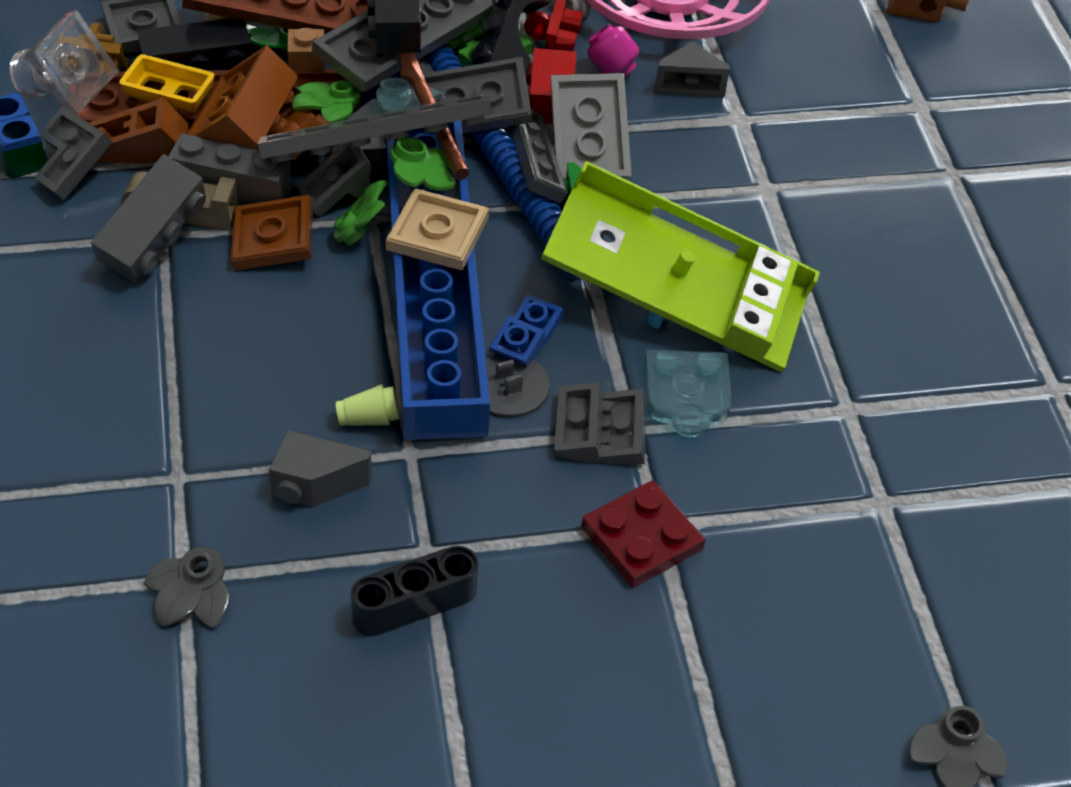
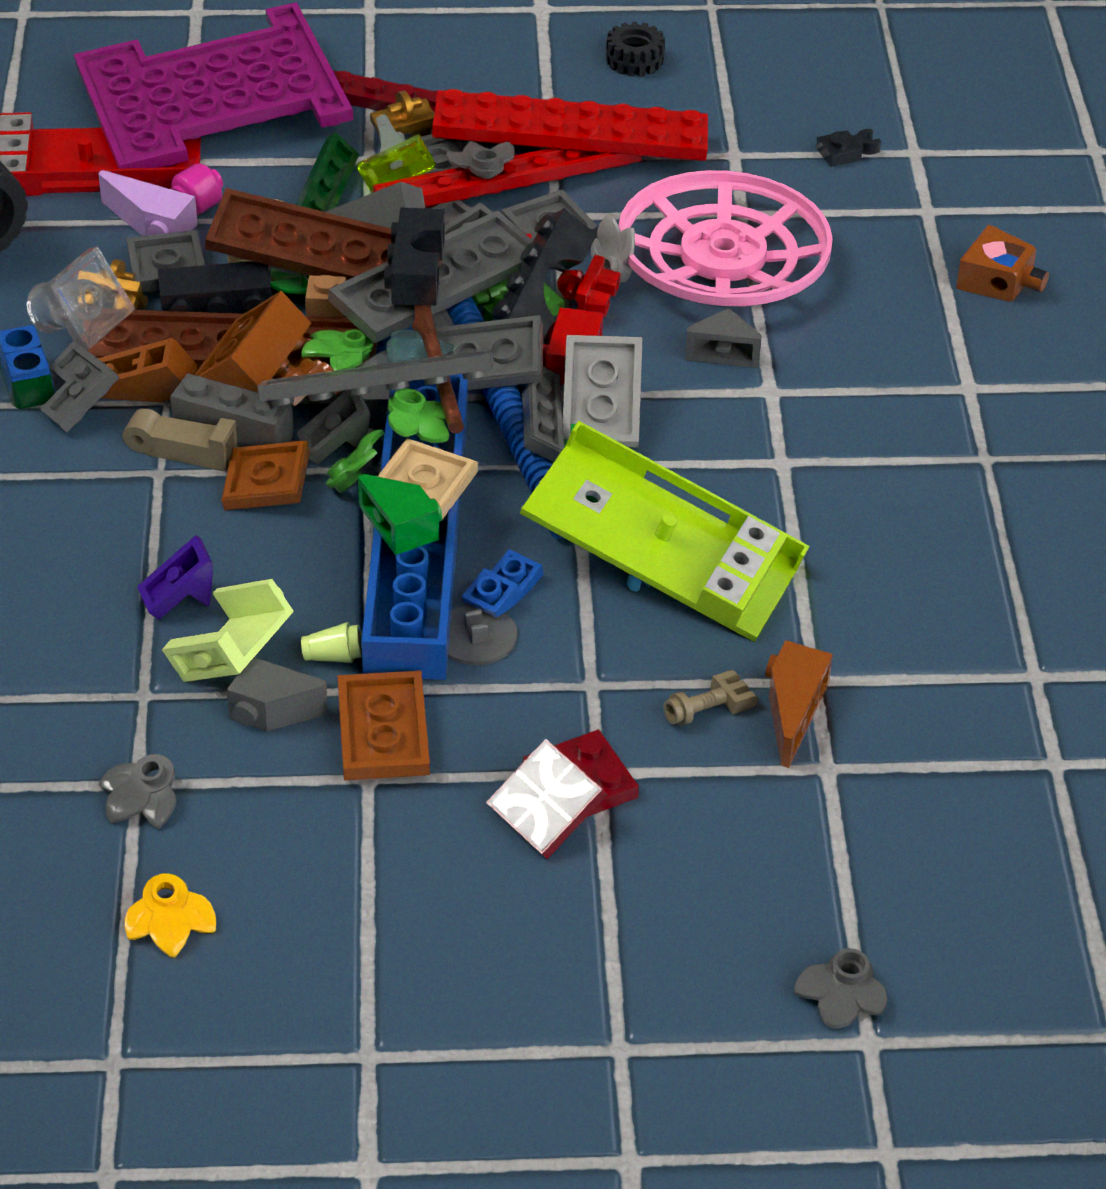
camera: 10 degrees right, 5 degrees down
(149, 219) = (145, 454): dark grey brick -> none
(173, 76) = (188, 316): yellow piece -> none
(204, 344) = (182, 574): none -> dark purple slope
(240, 738) = (169, 918): none -> yellow plate
(284, 391) = (254, 616): none -> yellowish green panel
(402, 607) = (349, 808): black beam -> none
(421, 266) = (399, 512): none -> green slope
(434, 493) = (383, 725): none -> dark orange plate
(600, 425) = (559, 677): dark grey slope -> none
(613, 50) = (644, 314): dark pink head -> none
(618, 563) = (546, 798): none -> tile
(688, 389) = (654, 650): clear light blue plate -> none
(730, 451) = (725, 690): none -> dark tan hinge
(837, 427) = (796, 689): none -> dark orange slope

